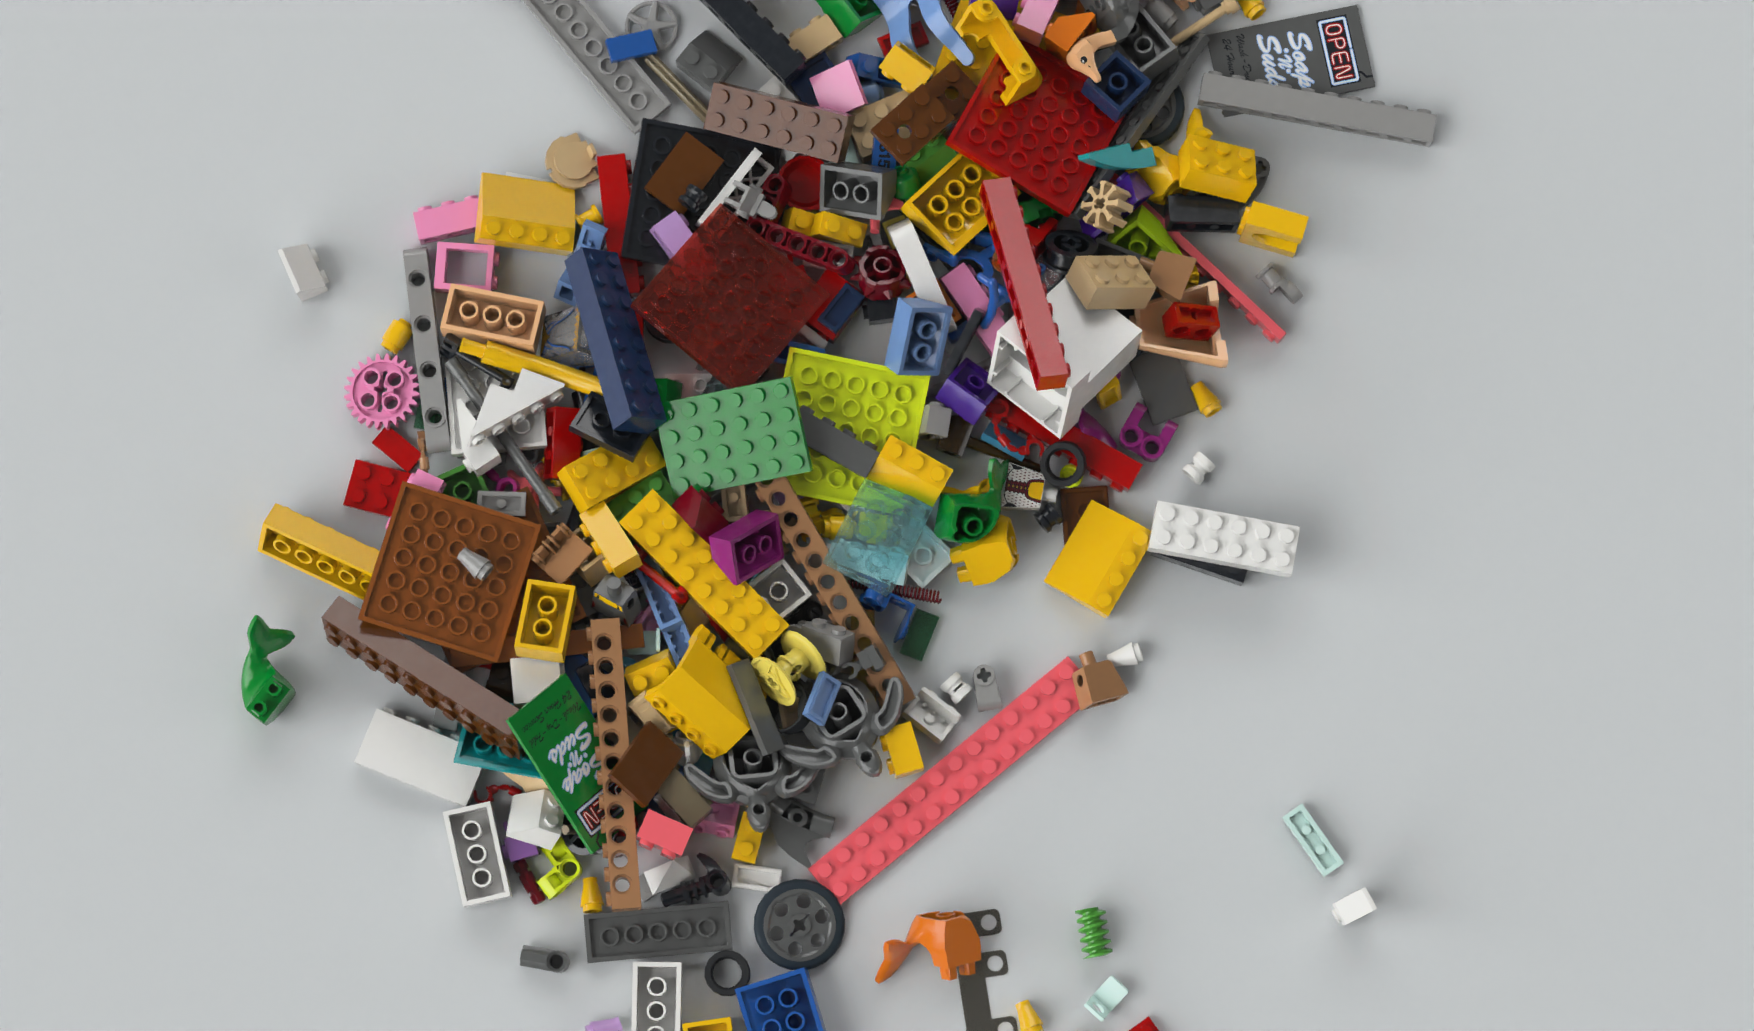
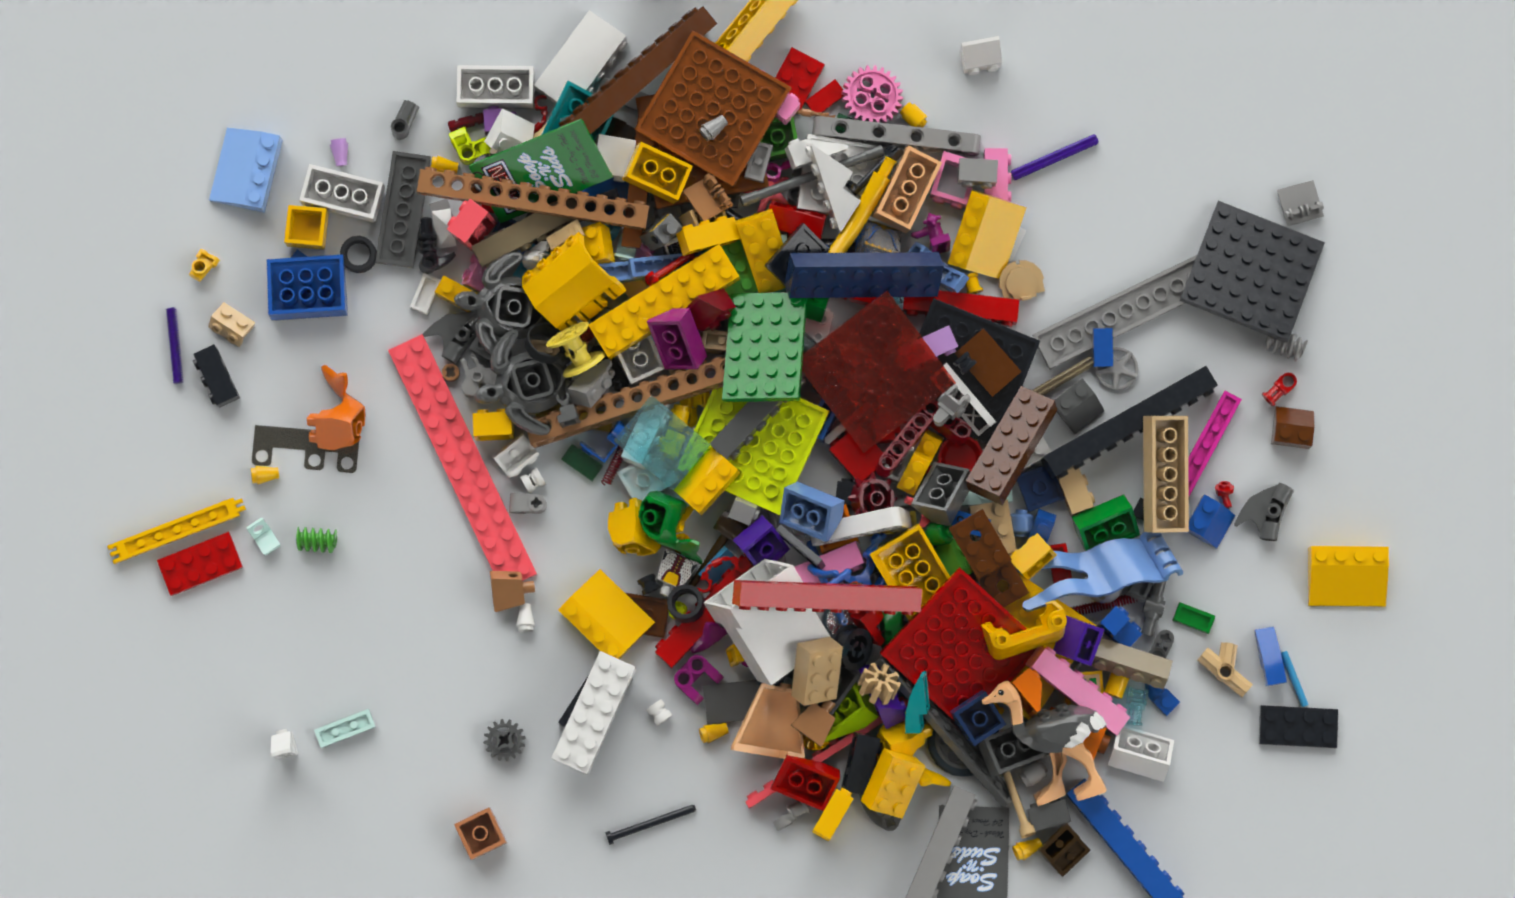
camera: 105 degrees right, 0 degrees up
(408, 157) = (1054, 157): none -> dark purple axle
(452, 239) = (977, 172): none -> light grey brick
(534, 278) = (938, 240): none -> magenta piece
(646, 764) = (526, 221): reddish brown tile -> none
(755, 707) = (551, 316): dark grey tile -> none
(766, 919) = (406, 313): wedge -> none
(821, 698) = (545, 369): medium blue tile -> none
(839, 88) = (1028, 500): bright pink tile -> none
(841, 308) = (852, 460): dark blue tile -> none
(846, 787) = (476, 377): none -> light grey hinge
(849, 829) = (456, 371): none -> medium nougat bush
(1190, 321) = (774, 732): red brick -> none
(1239, 270) = (806, 781): none -> red slope
(1282, 634) = (510, 732): none -> dark grey gear
(1333, 449) = (649, 823): none -> black bar
(1397, 643) = (480, 833): none -> nougat brick

